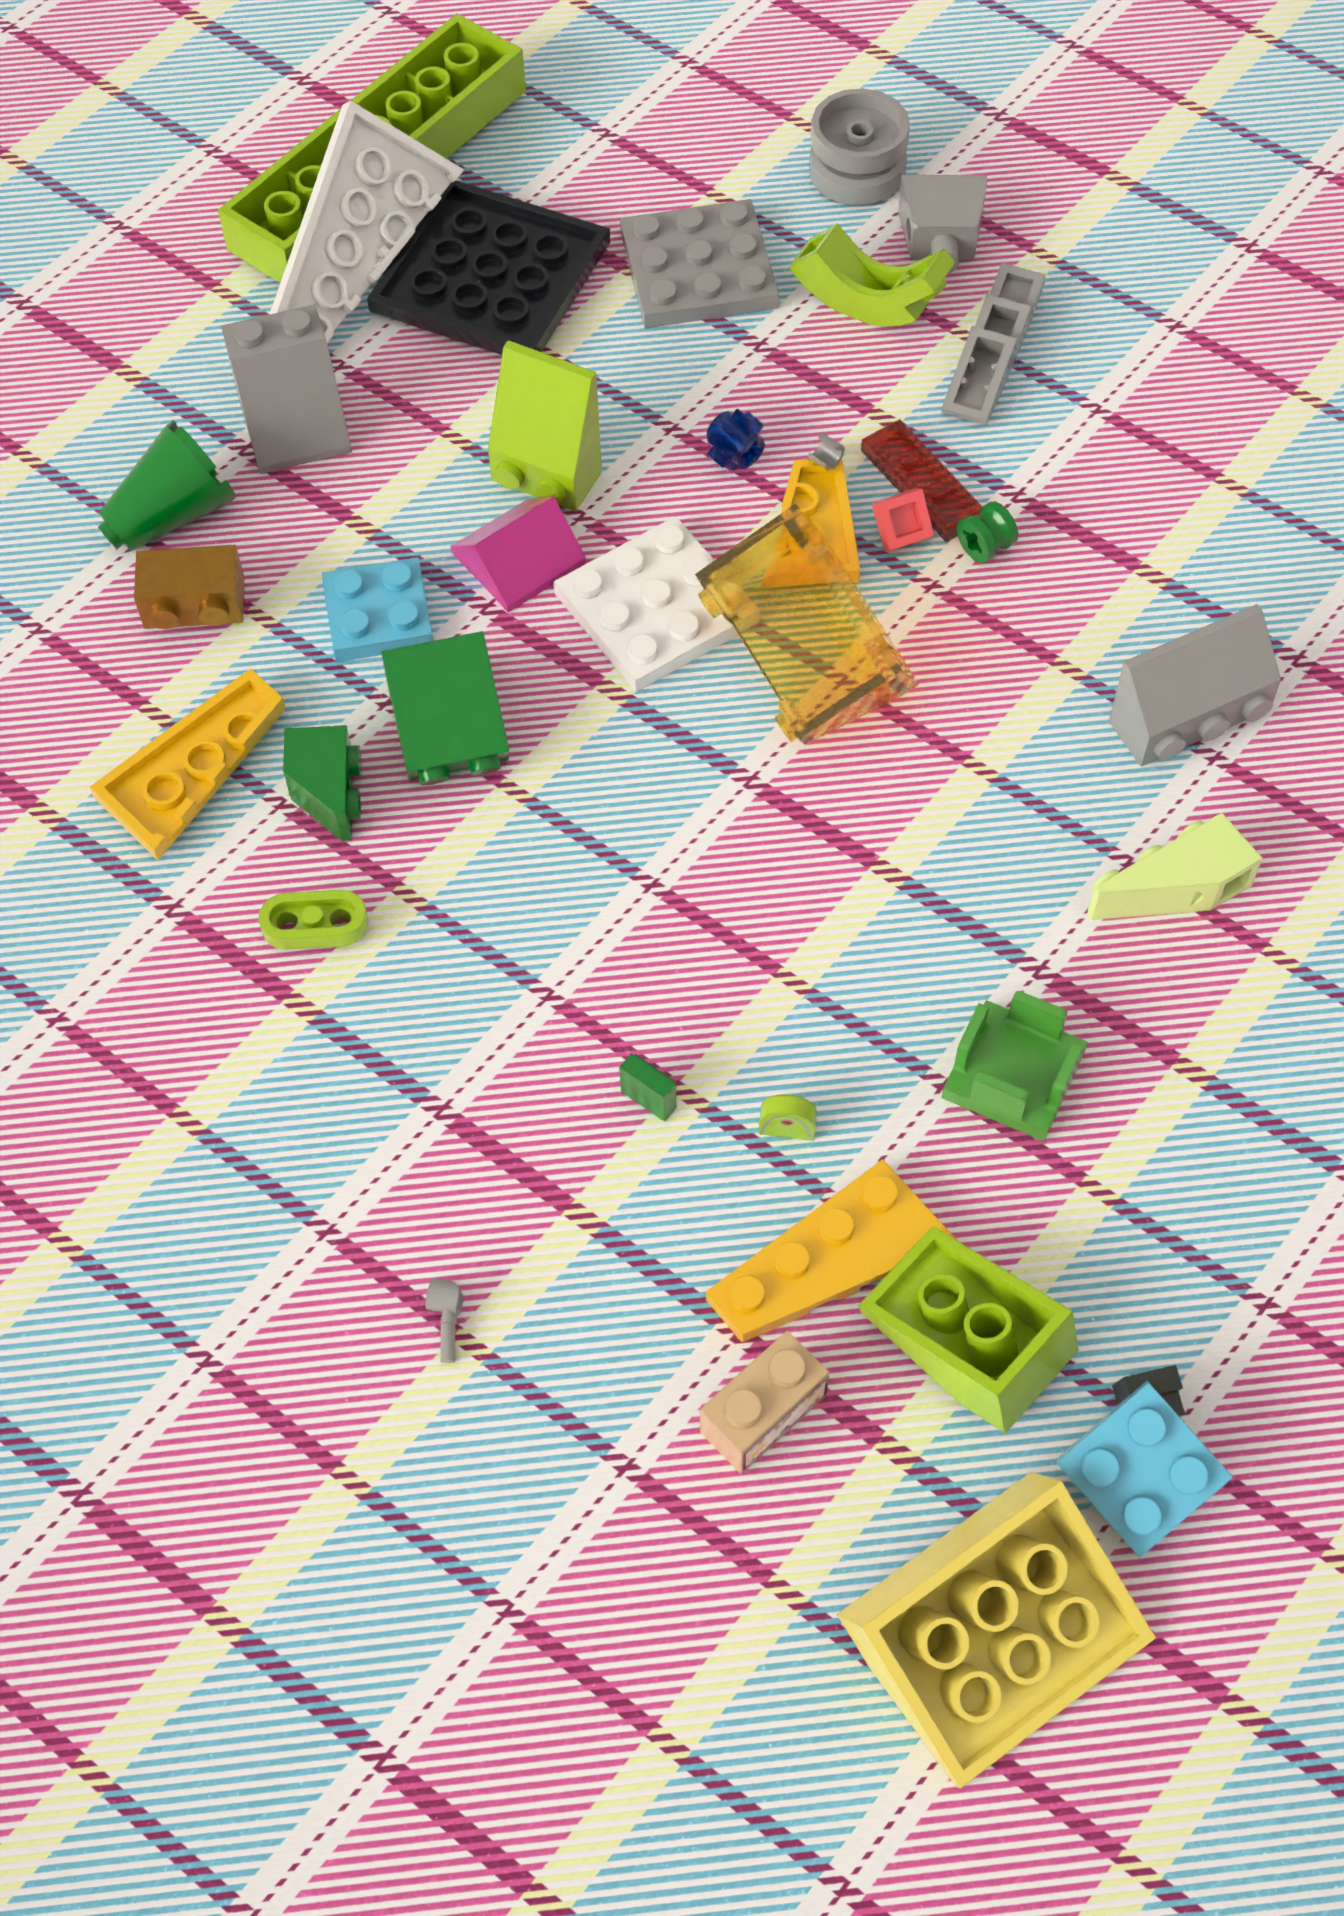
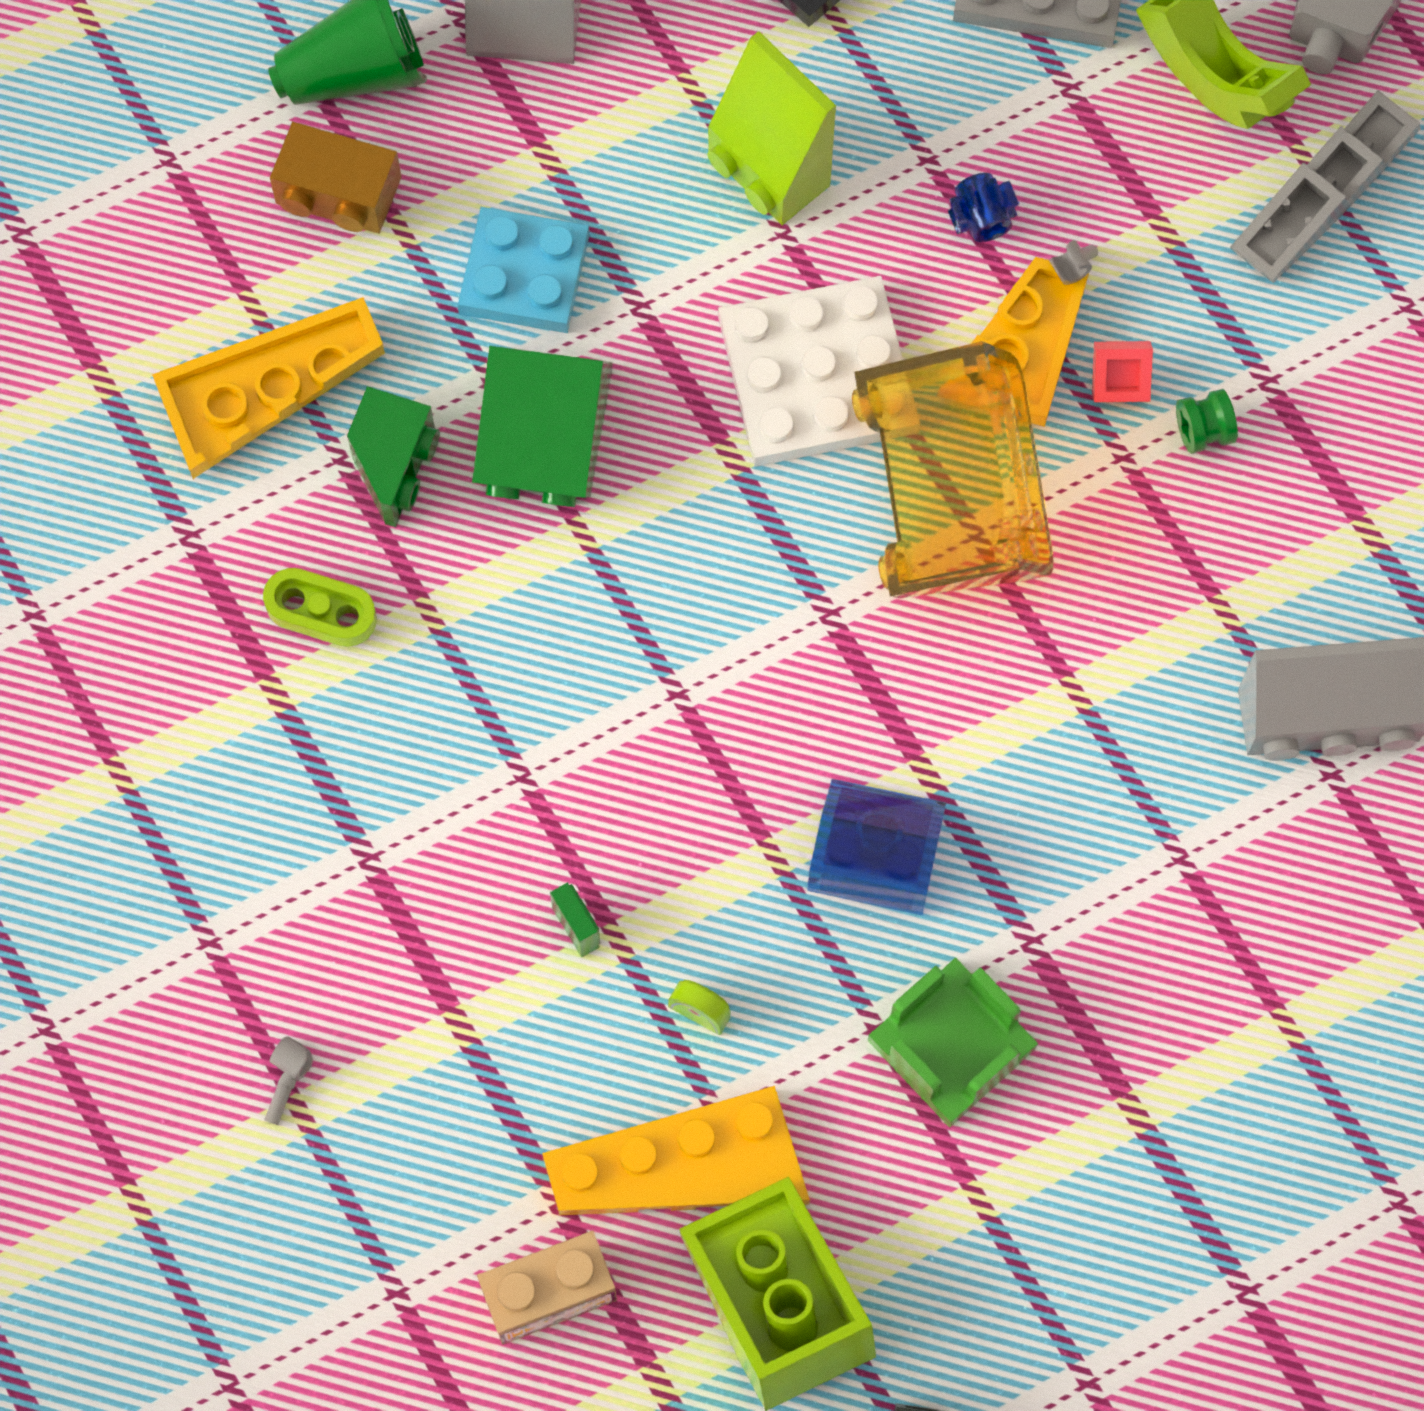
camera: 20 degrees right, 10 degrees up
(521, 551) = (700, 256): dark pink slope -> none
(879, 941) = (876, 846): none -> clear blue slope
(912, 465) = (1170, 323): clear red tile -> none
(1187, 875) = (1228, 901): yellowish green slope -> none

